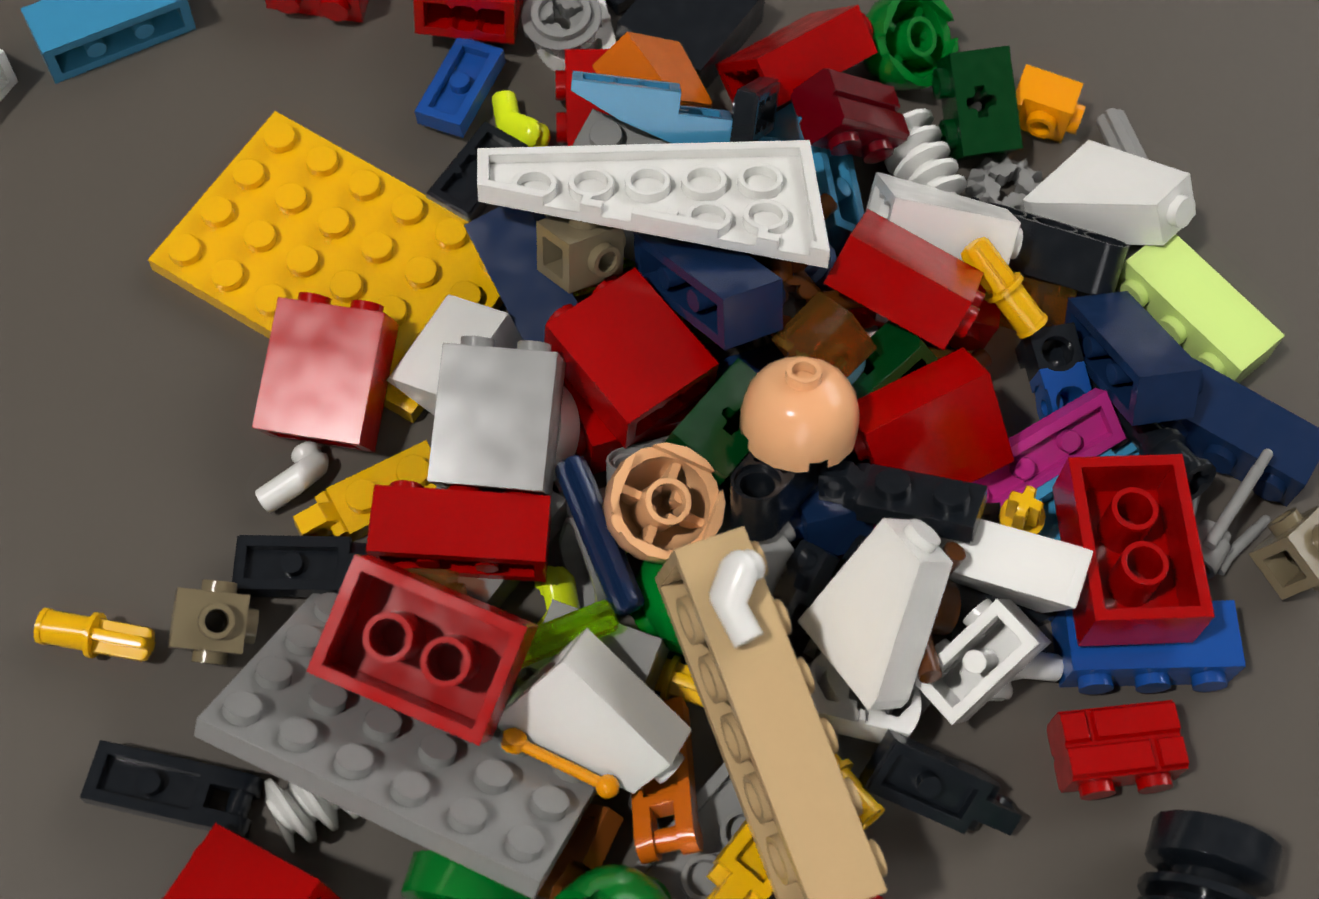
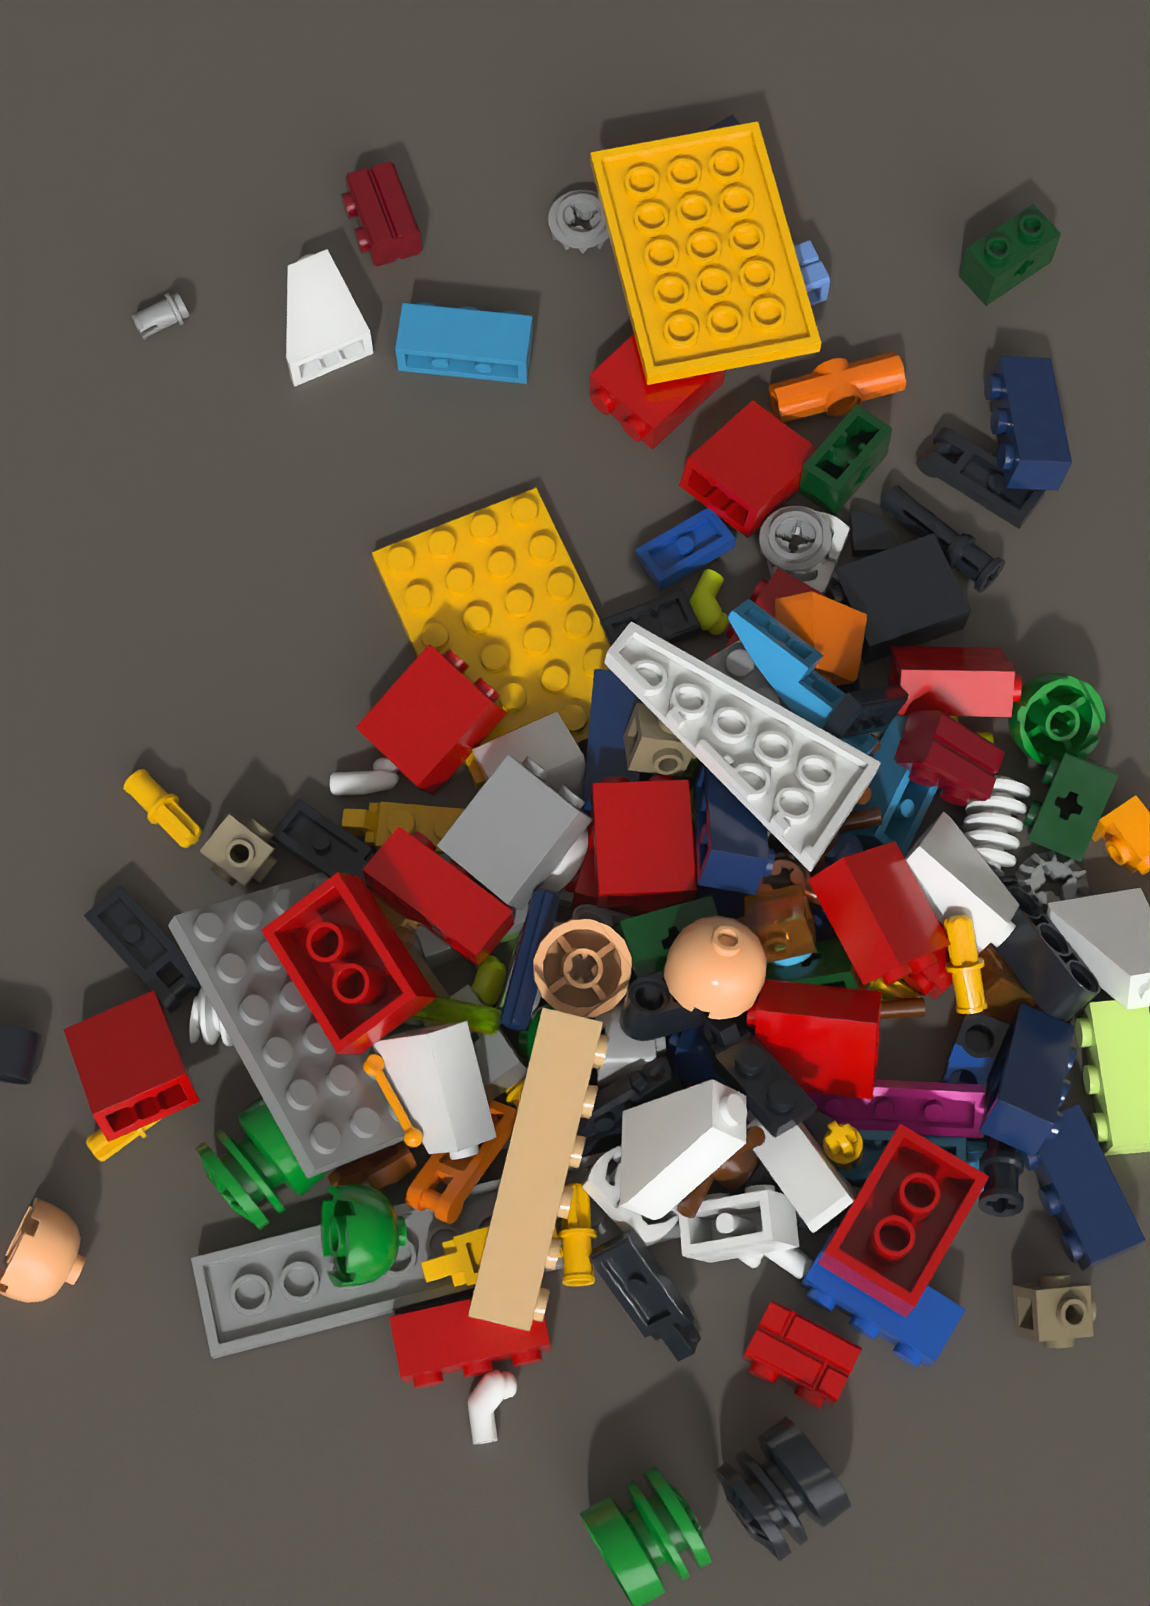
camera: 40 degrees right, 5 degrees up
(731, 593) = (557, 1062): white arm -> none
(1215, 537) = (987, 1257): light grey plant -> none

